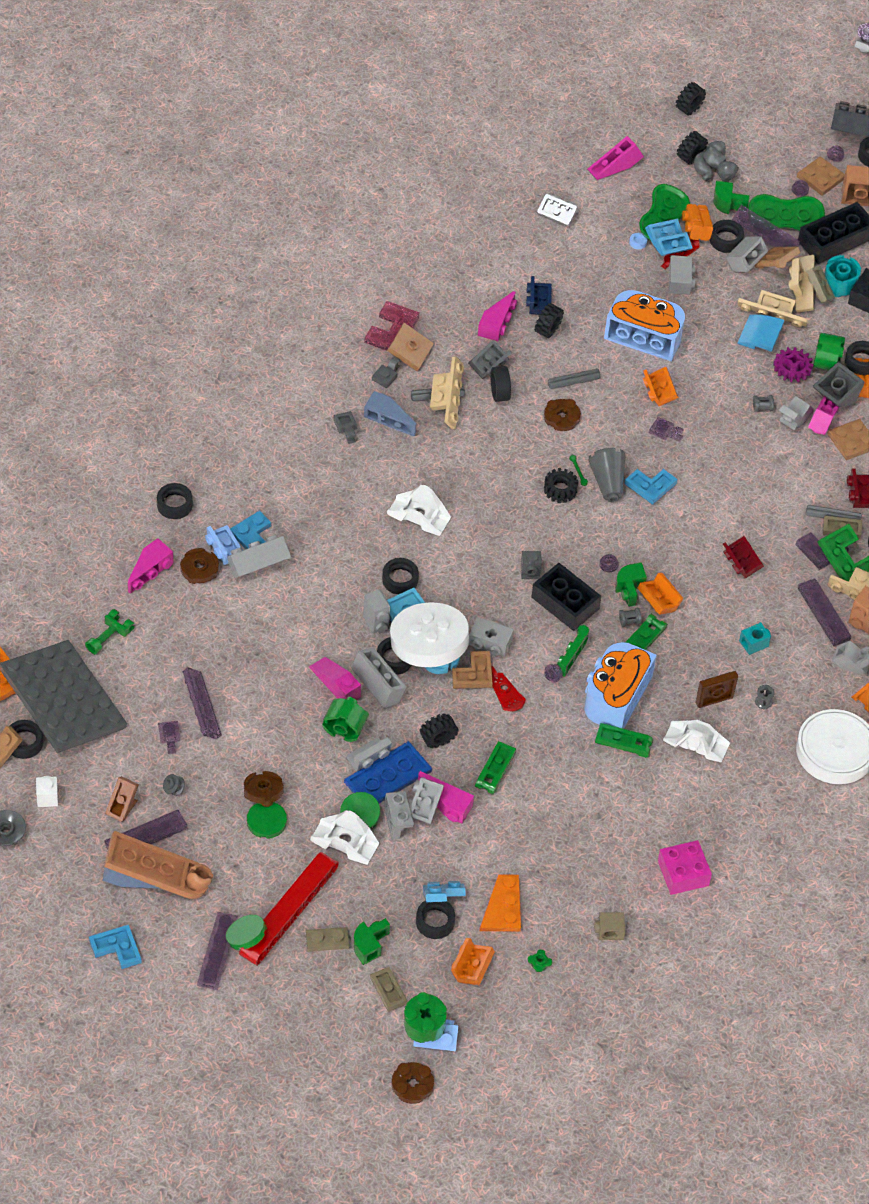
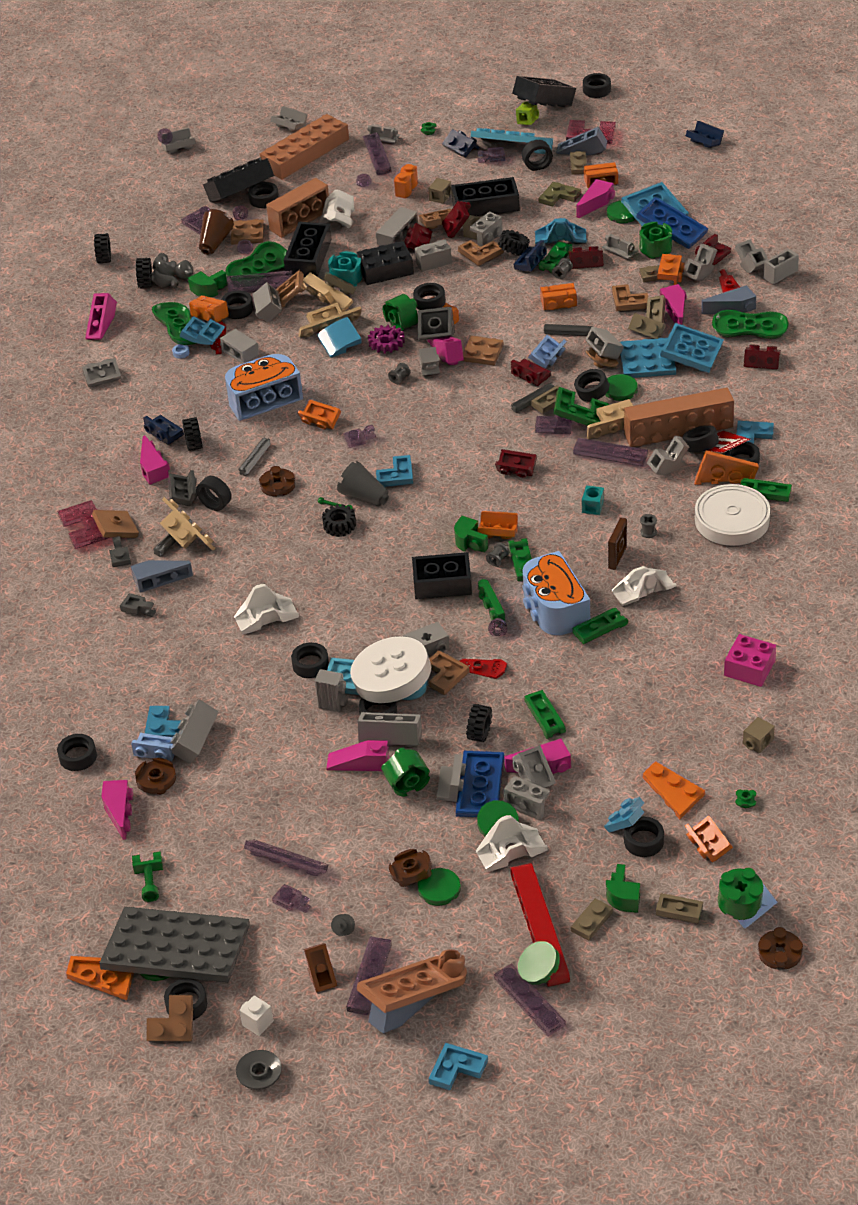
camera: 40 degrees left, 10 degrees down
(531, 564) = (389, 578): dark grey brick -> none
(609, 558) = (436, 537): clear purple plate -> none
(789, 154) = (214, 230): none -> reddish brown cone
(797, 131) = (194, 220): none -> clear purple plate

